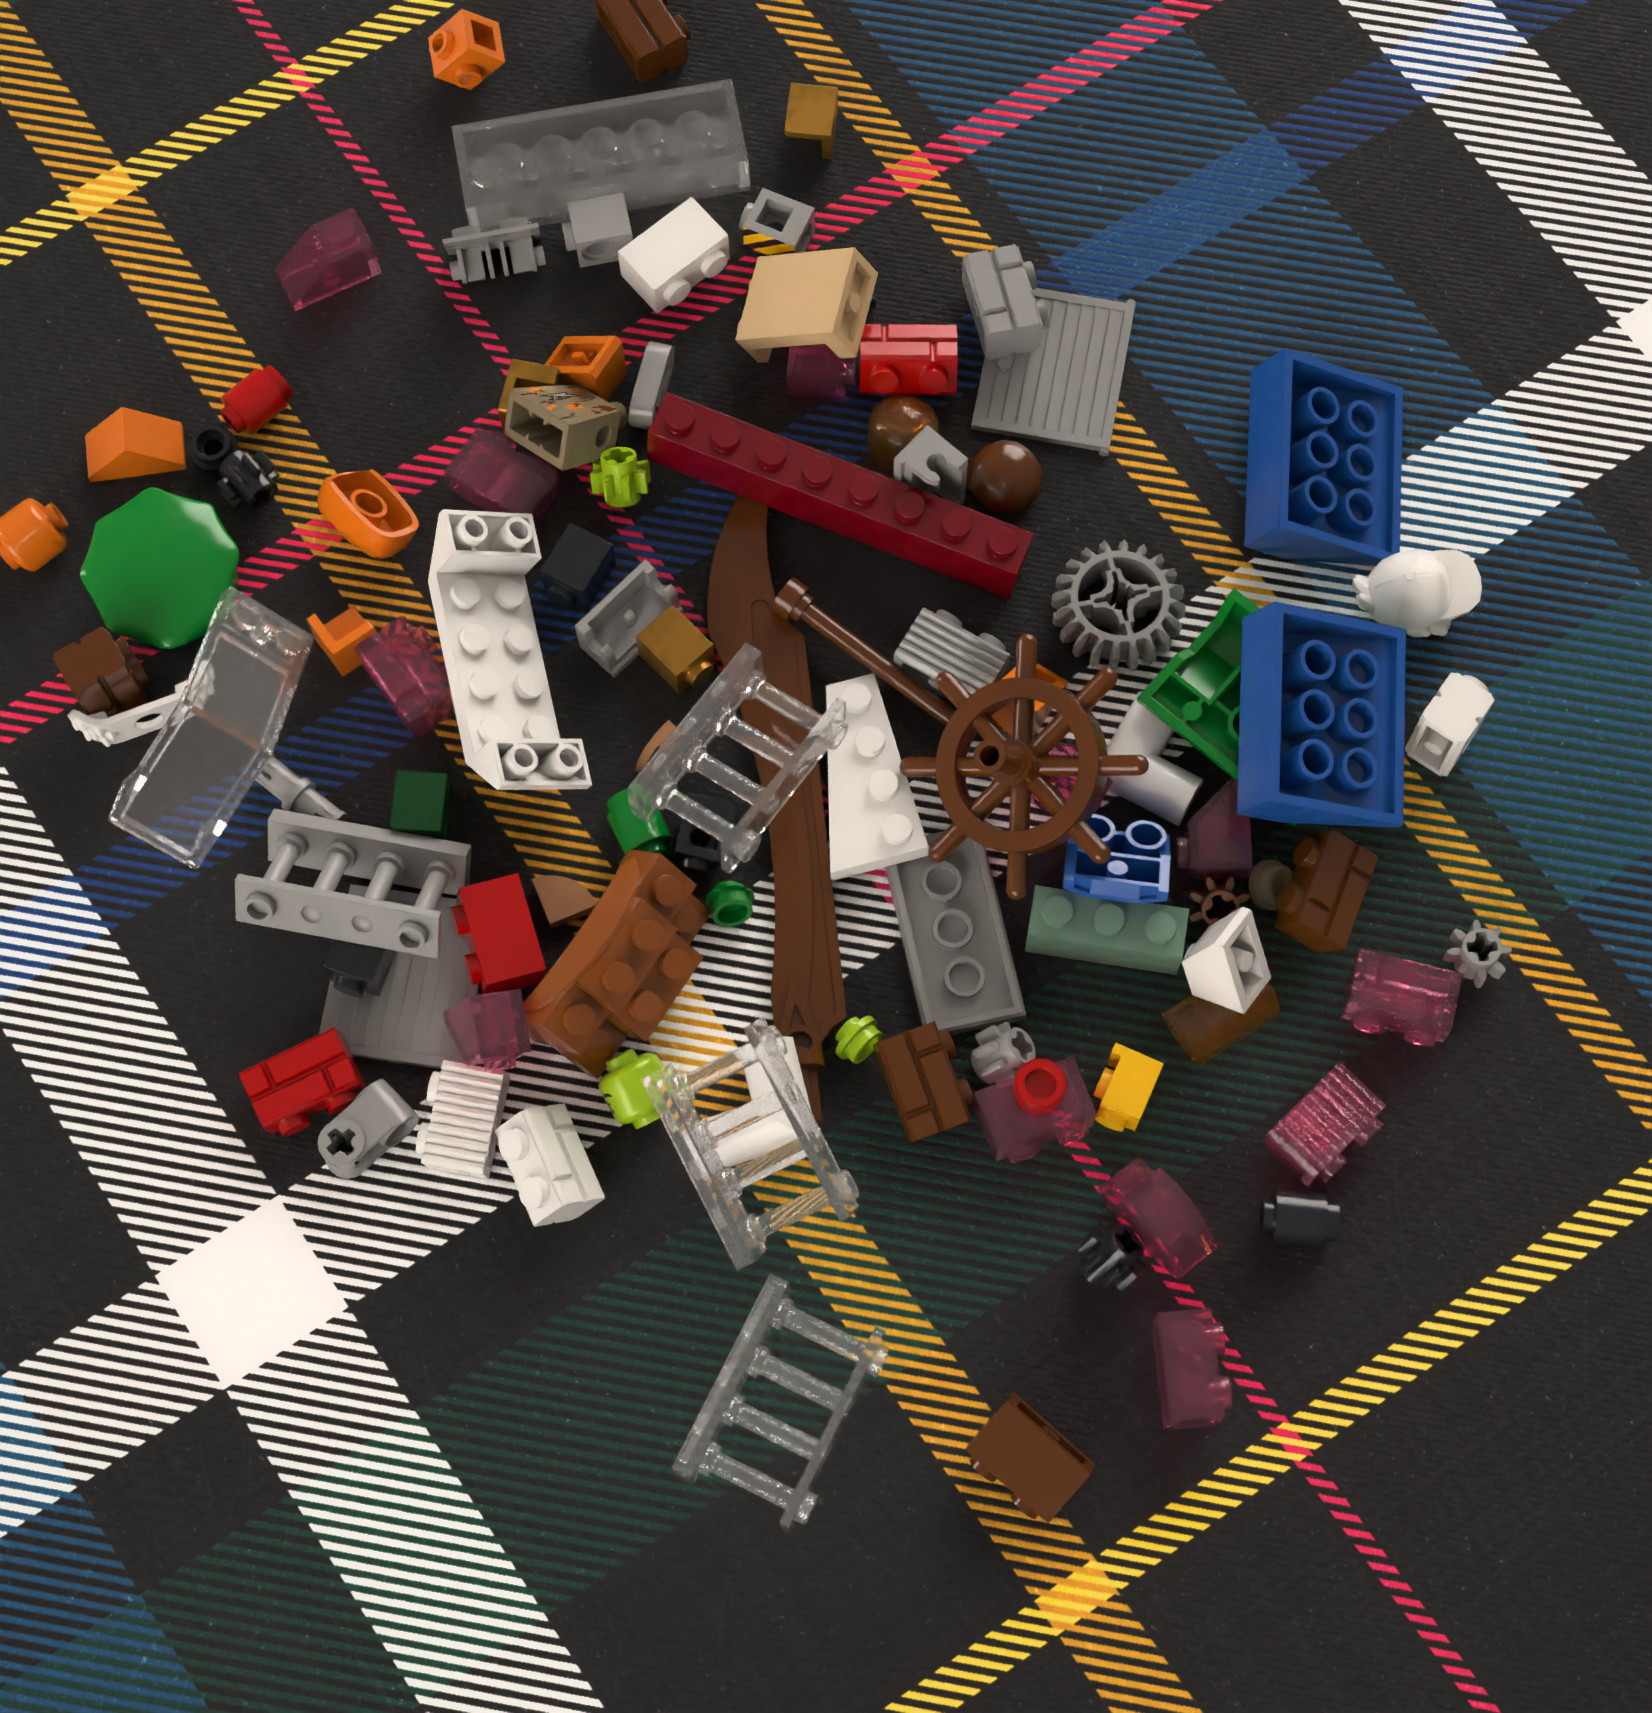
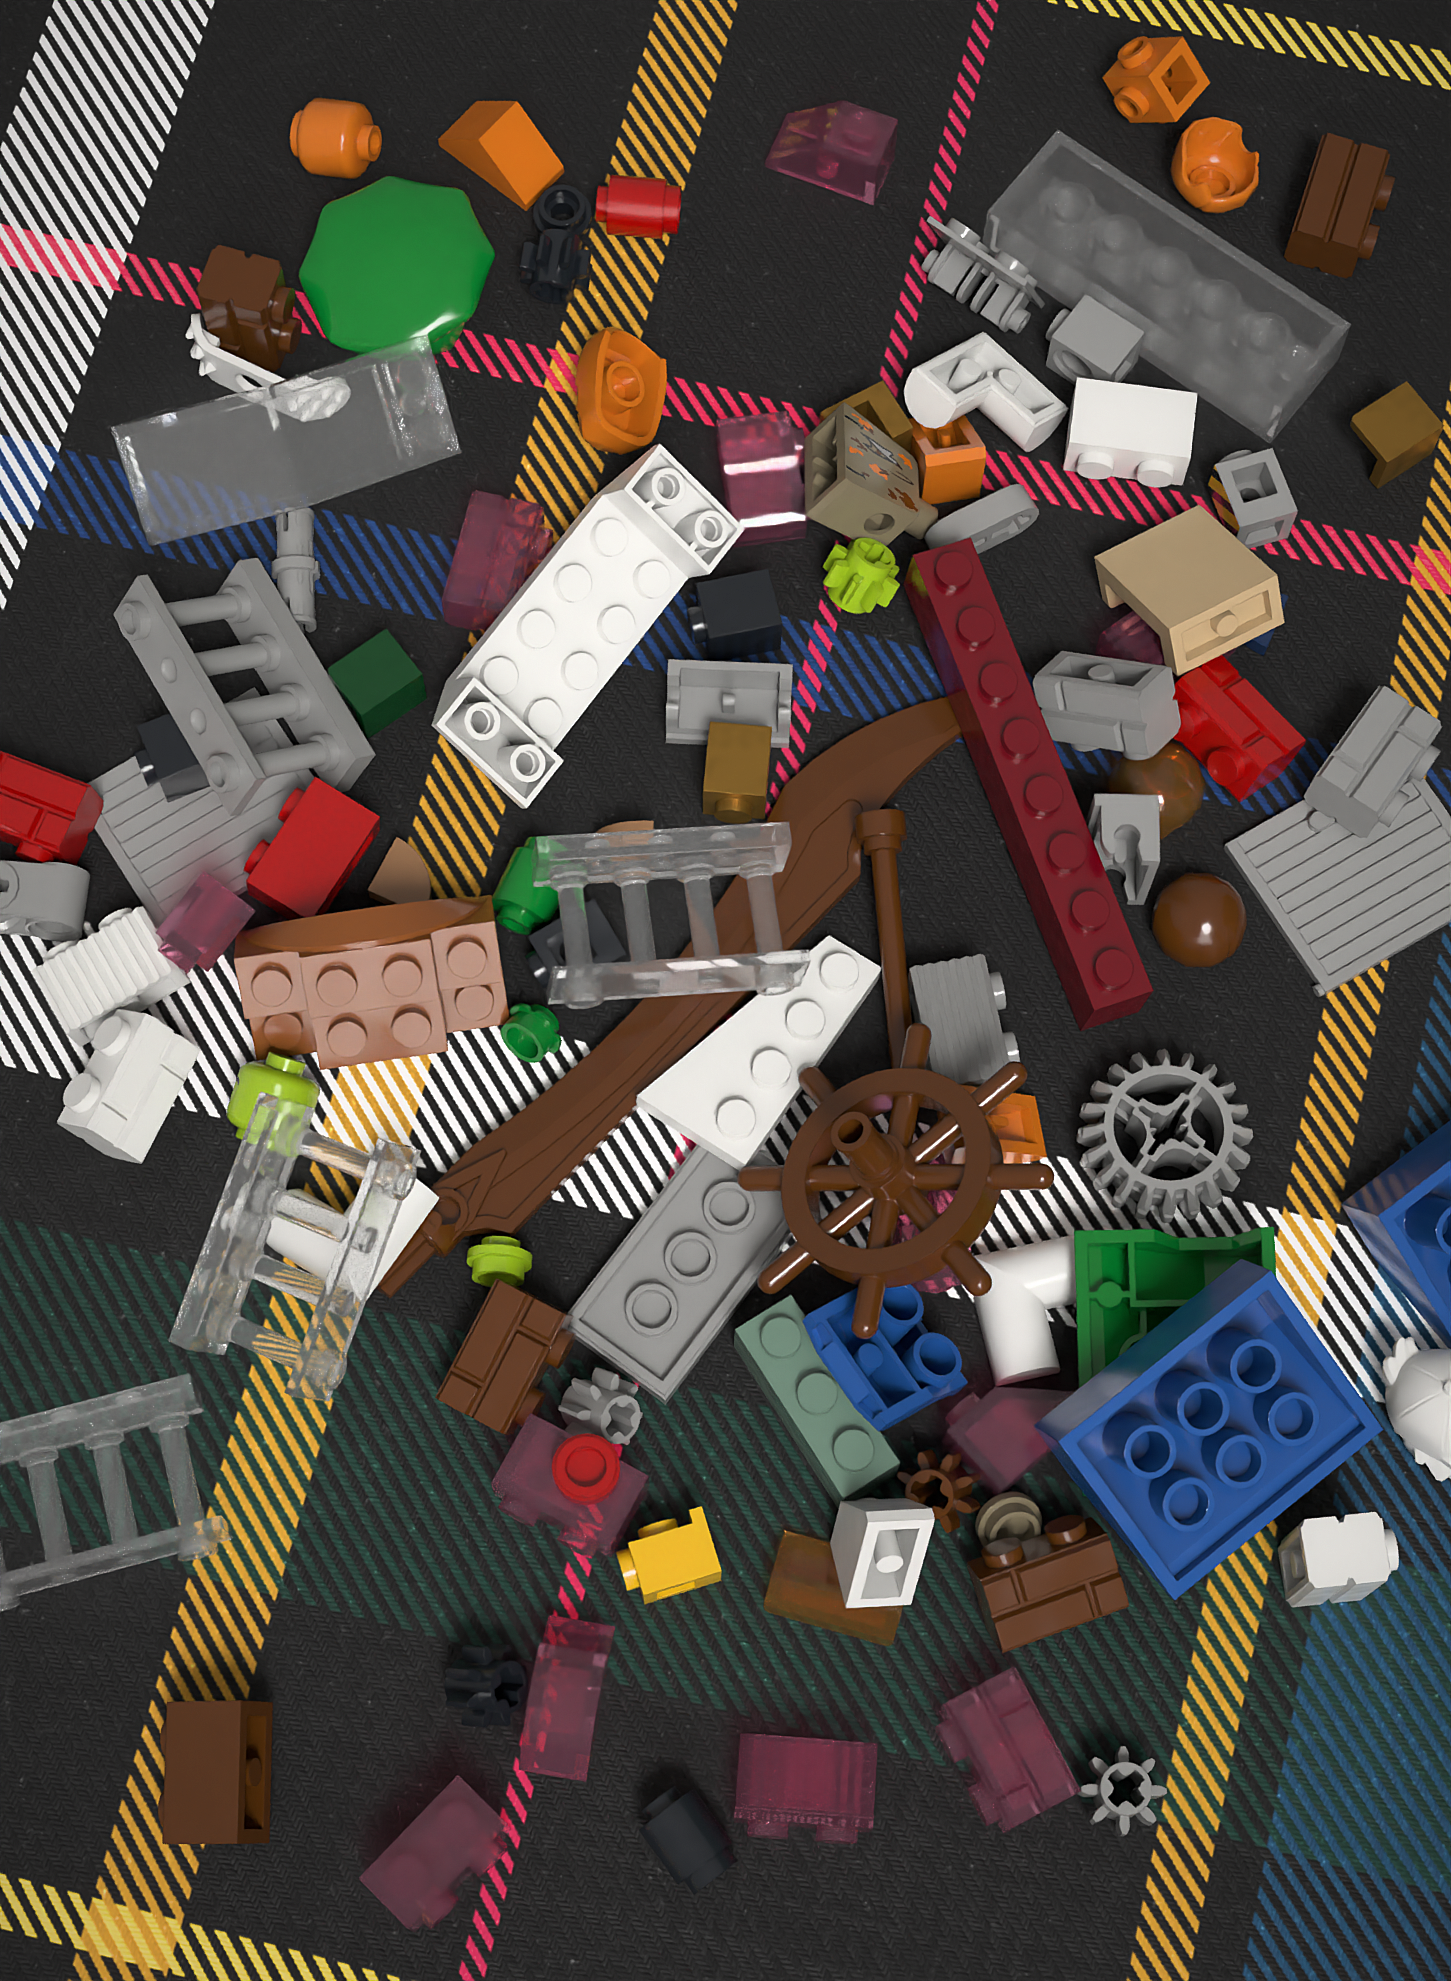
camera: 45 degrees right, 0 degrees up
(340, 638) = (479, 471): orange panel -> none
(551, 68) = (1214, 166): none -> orange hair
(563, 304) = (987, 379): none -> white brick
(837, 407) = (1108, 704): none -> light grey brick

